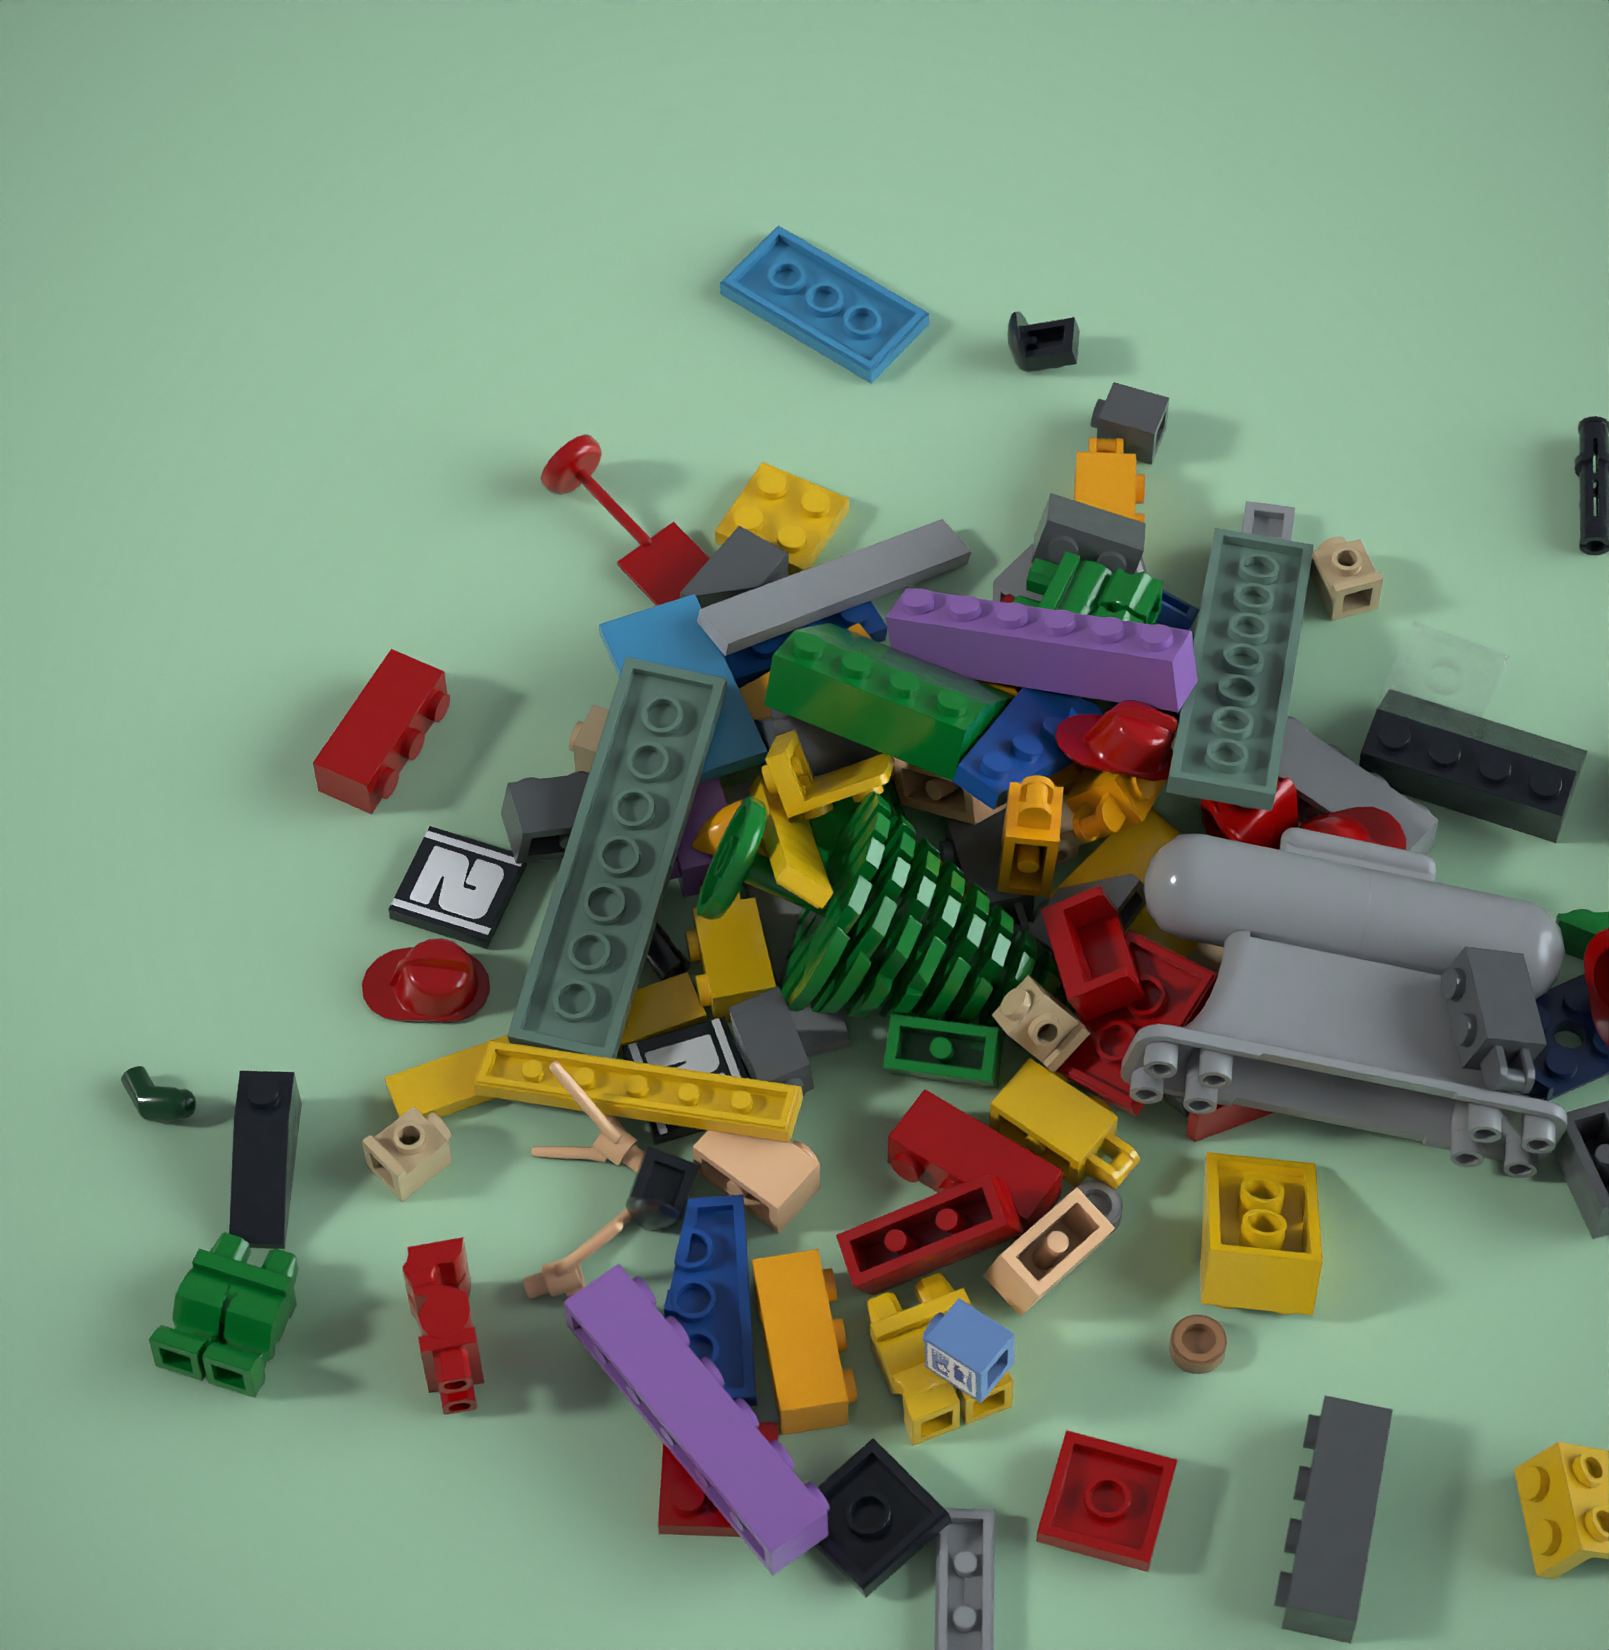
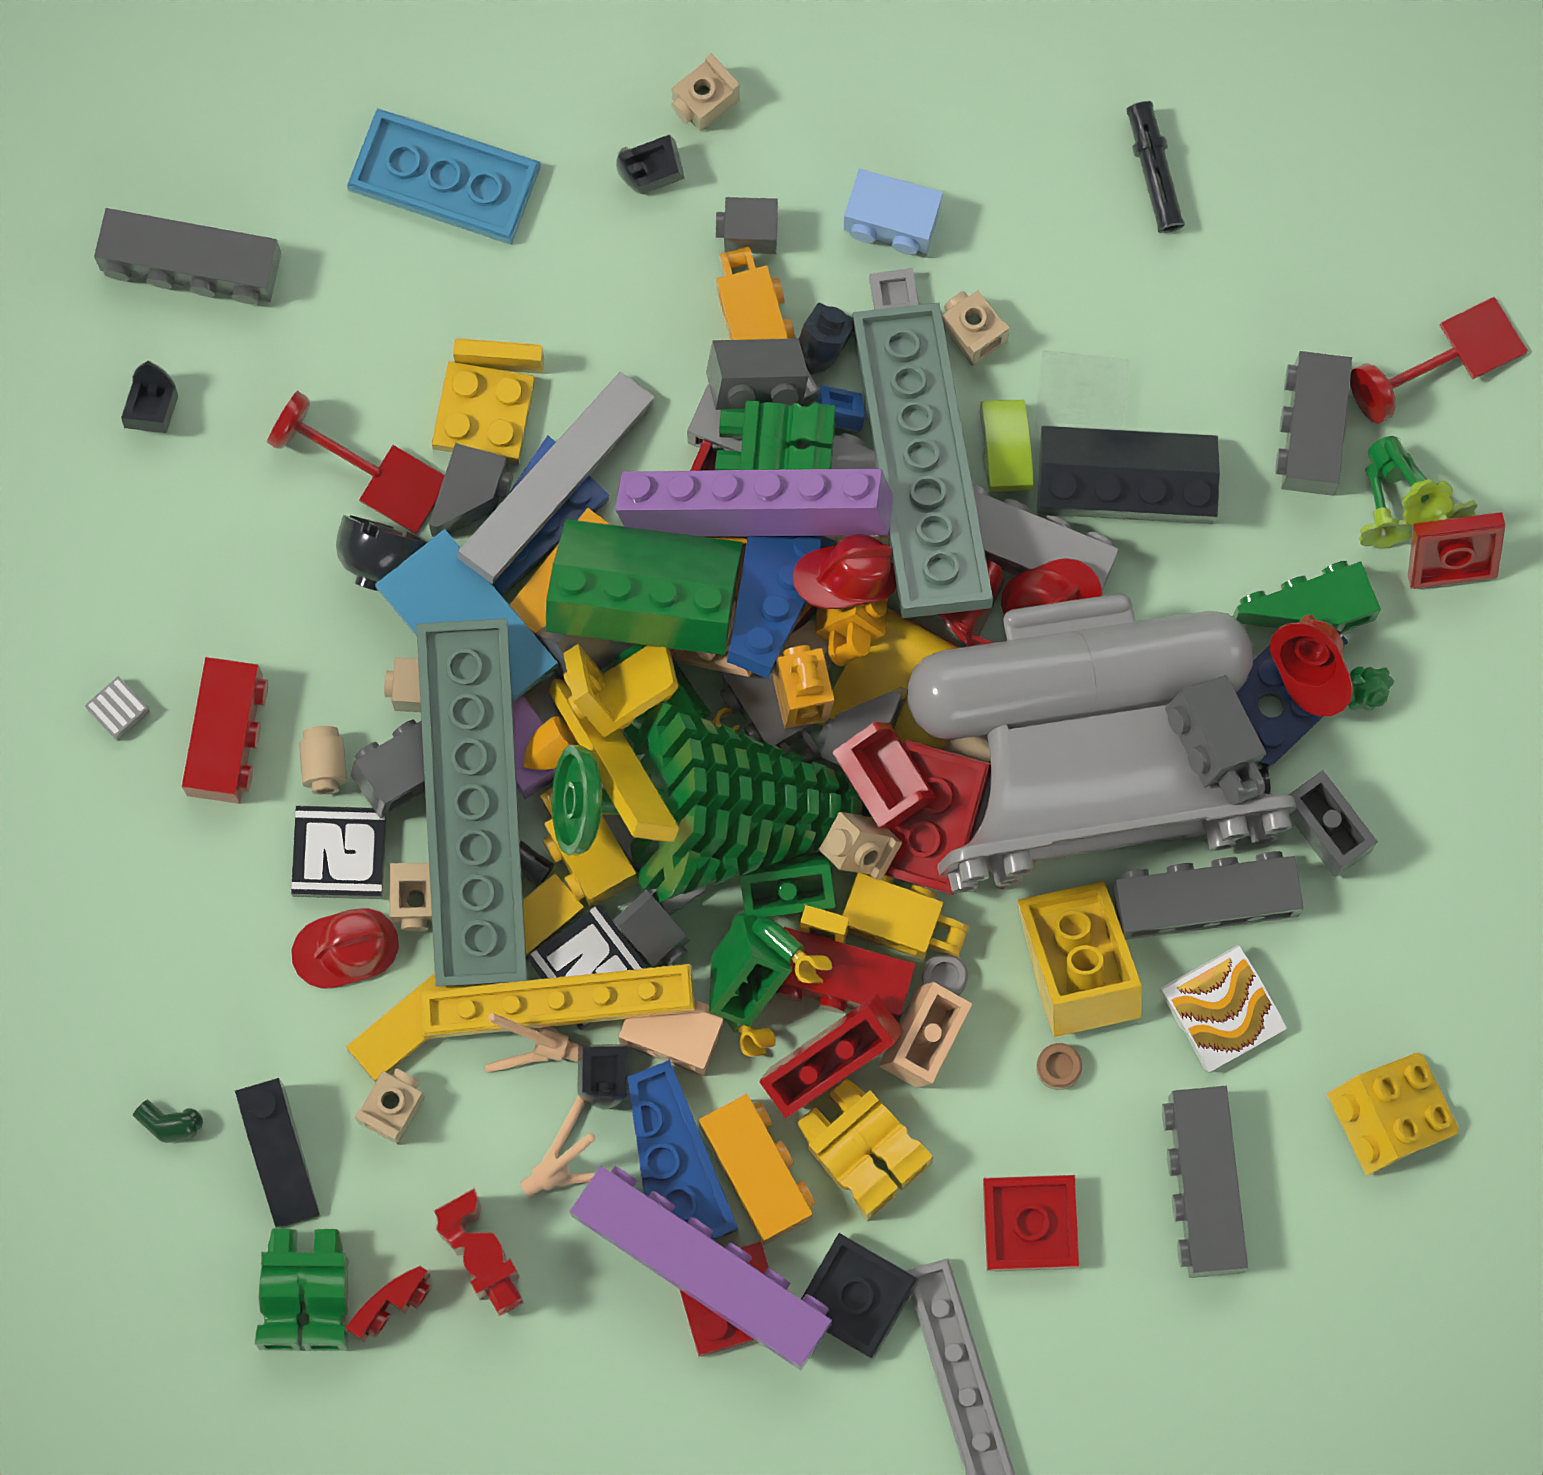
camera: 20 degrees left, 20 degrees up
(279, 684) = (117, 708): none -> tile
(340, 1347) = (401, 1292): none -> red slope
(439, 411) = (150, 399): none -> black plate
(477, 789) = (322, 760): none -> tan brick
(514, 943) = (405, 881): none -> tan brick
(531, 298) = (187, 256): none -> dark grey brick
(605, 596) = (373, 549): none -> black cylinder
(820, 466) = (499, 355): none -> yellow tile
(866, 1122) = (748, 972): none -> green torso
(968, 1349) = (894, 1150): medium blue brick -> none
(971, 1091) = (824, 924): none -> yellow tile
(1127, 296) = (705, 108): none -> tan brick
(1173, 543) = (824, 337): none -> black plate
(1291, 449) = (892, 212): none -> light blue brick
(1344, 697) = (1006, 445): none -> lime slope
(1415, 1336) = (1223, 1008): none -> slope
(1434, 1210) = (1208, 896): none -> dark grey brick

